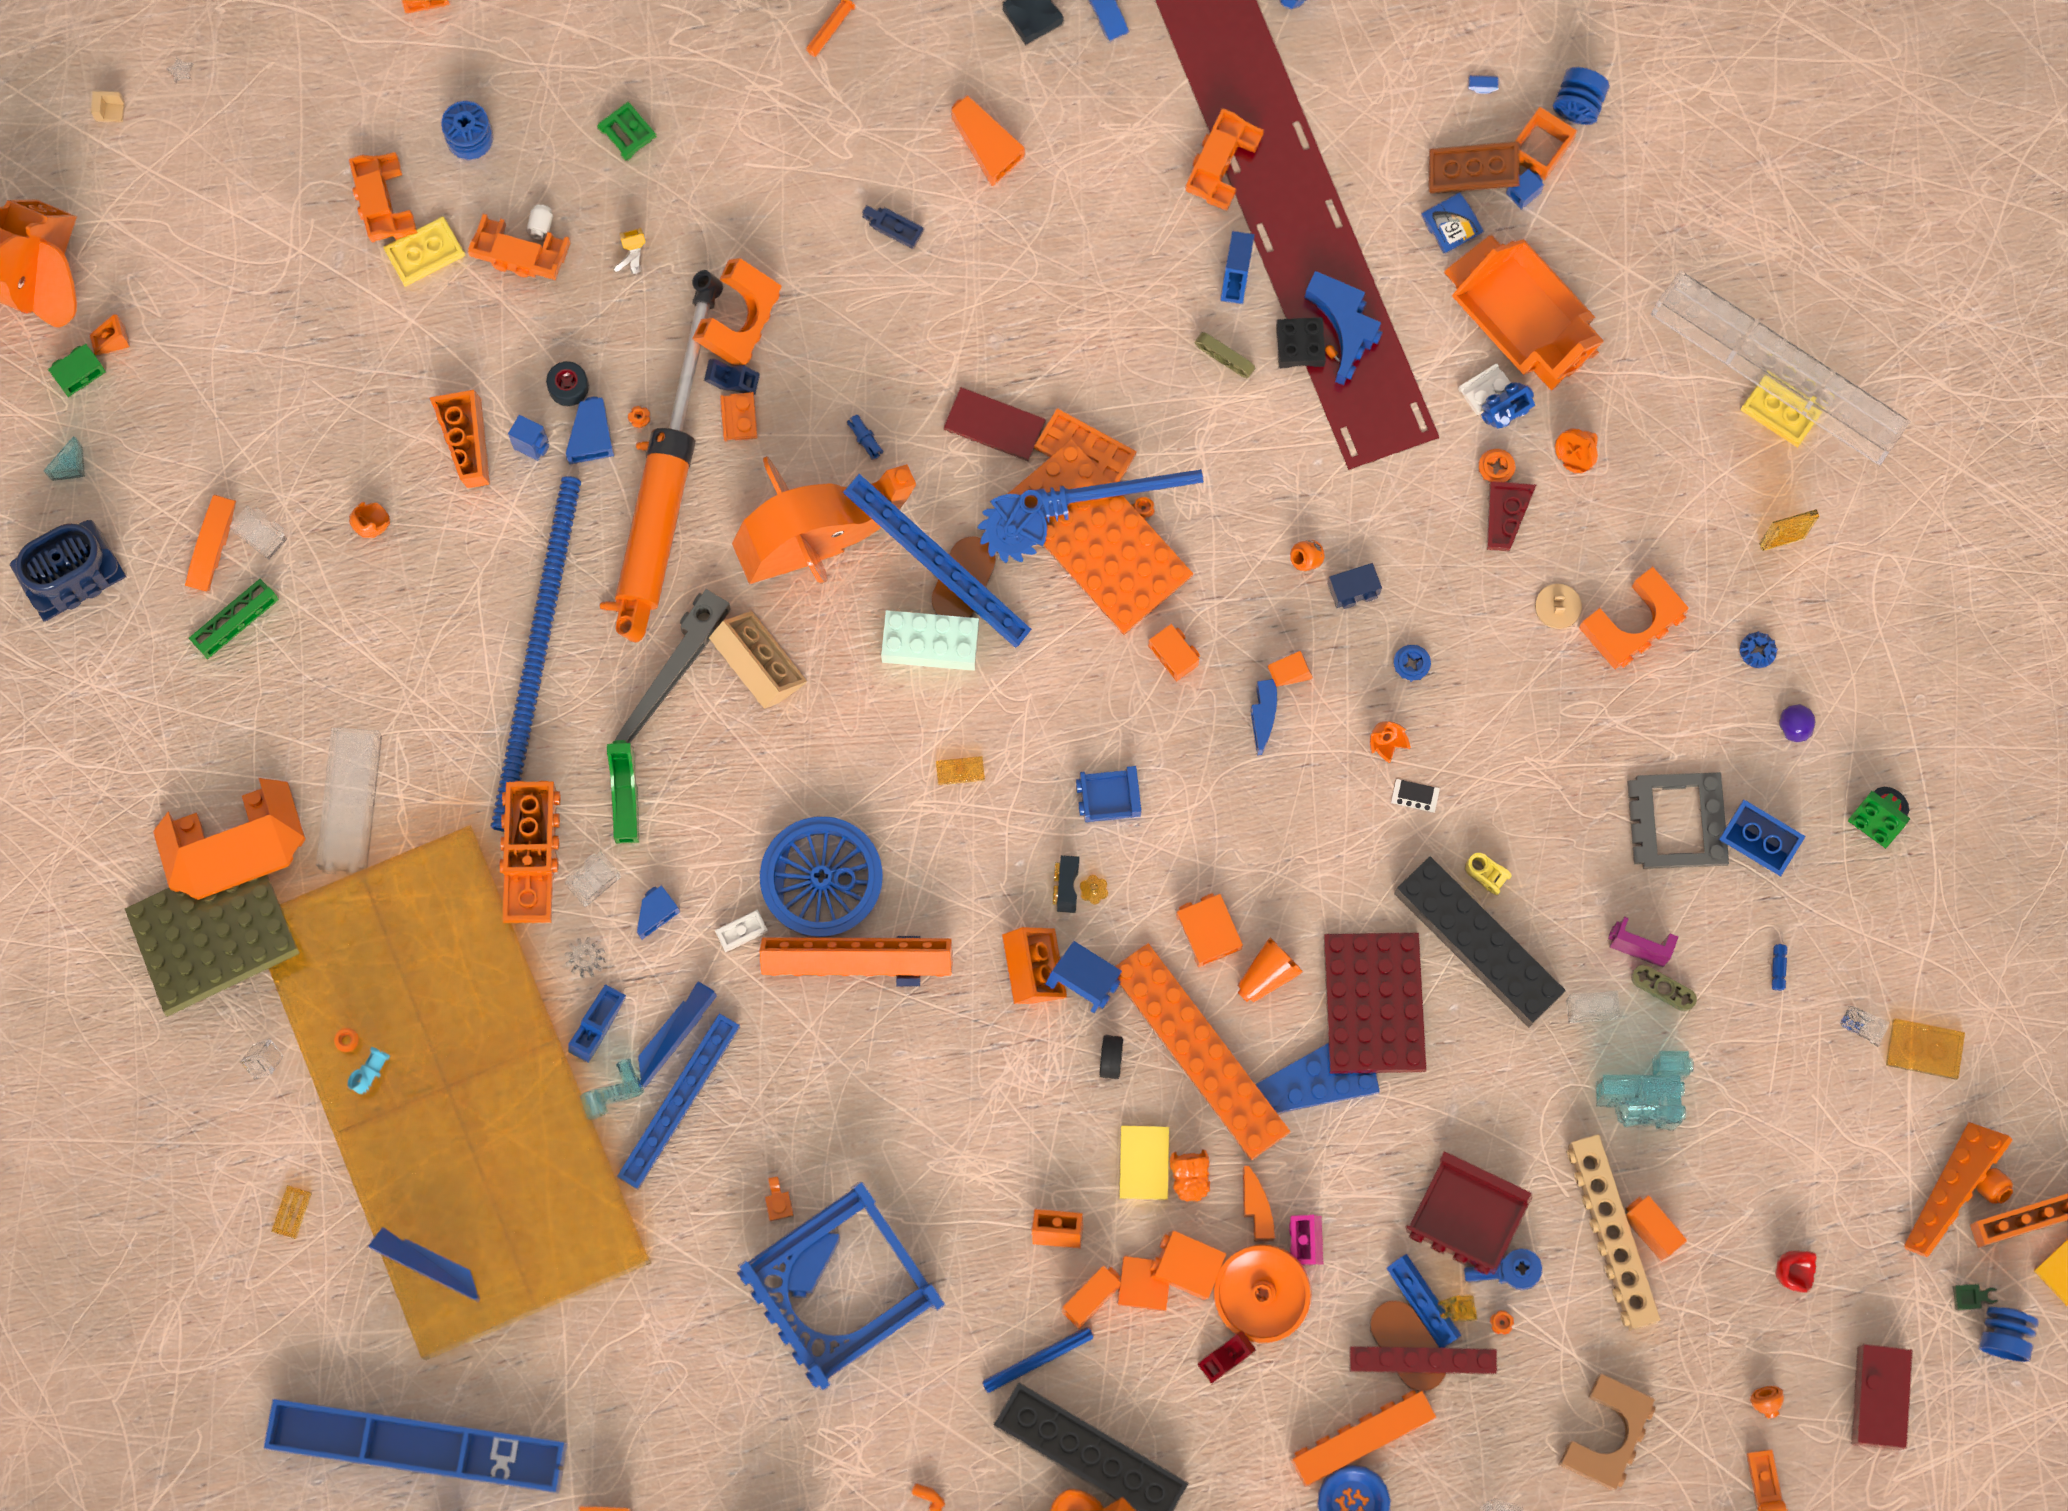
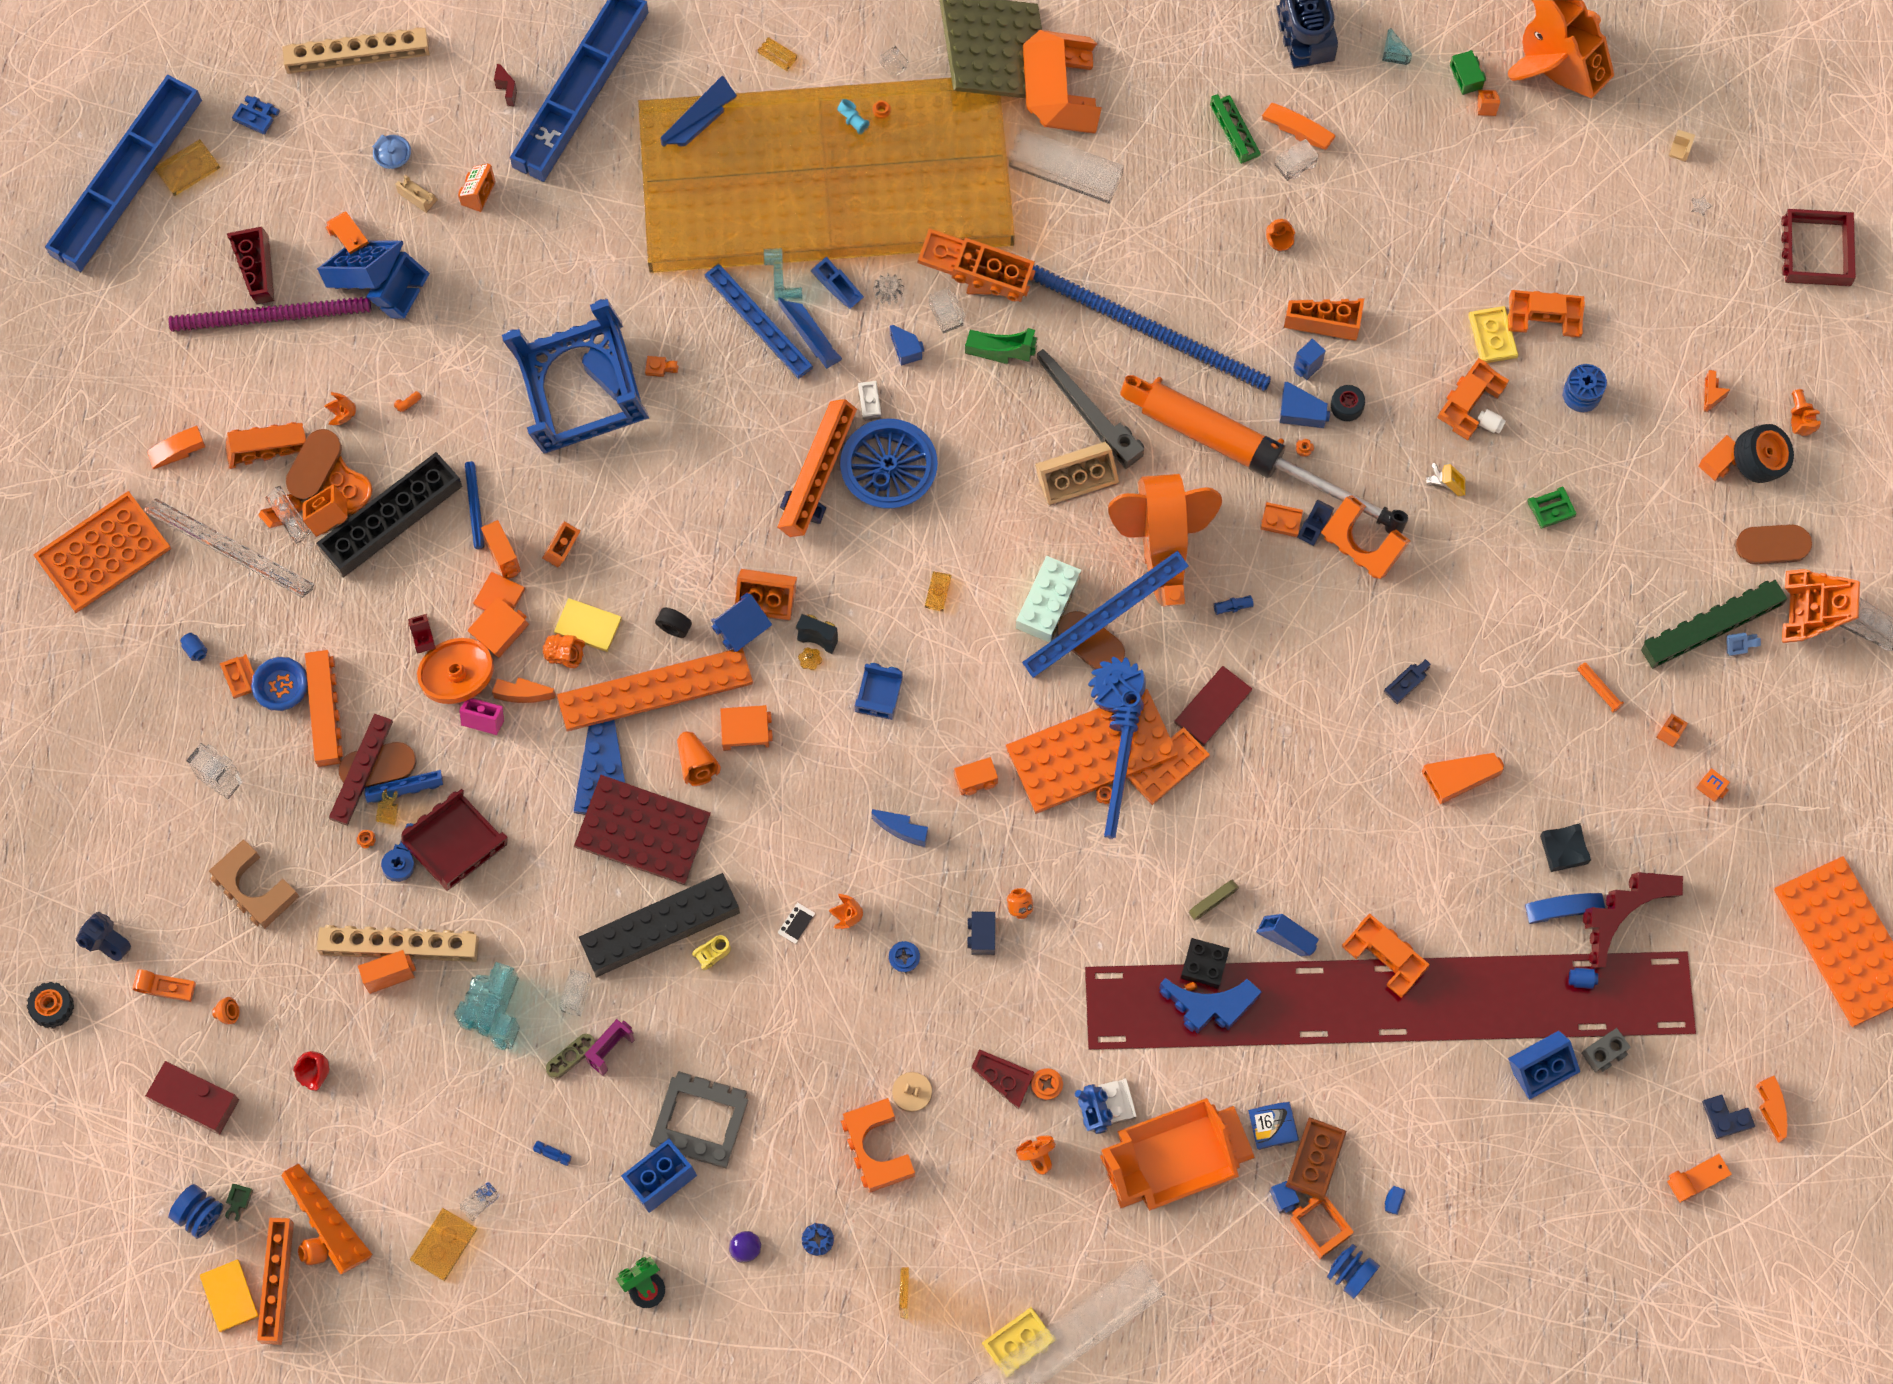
camera: 110 degrees right, 5 degrees down
(1290, 670) = (928, 857): orange slope -> none

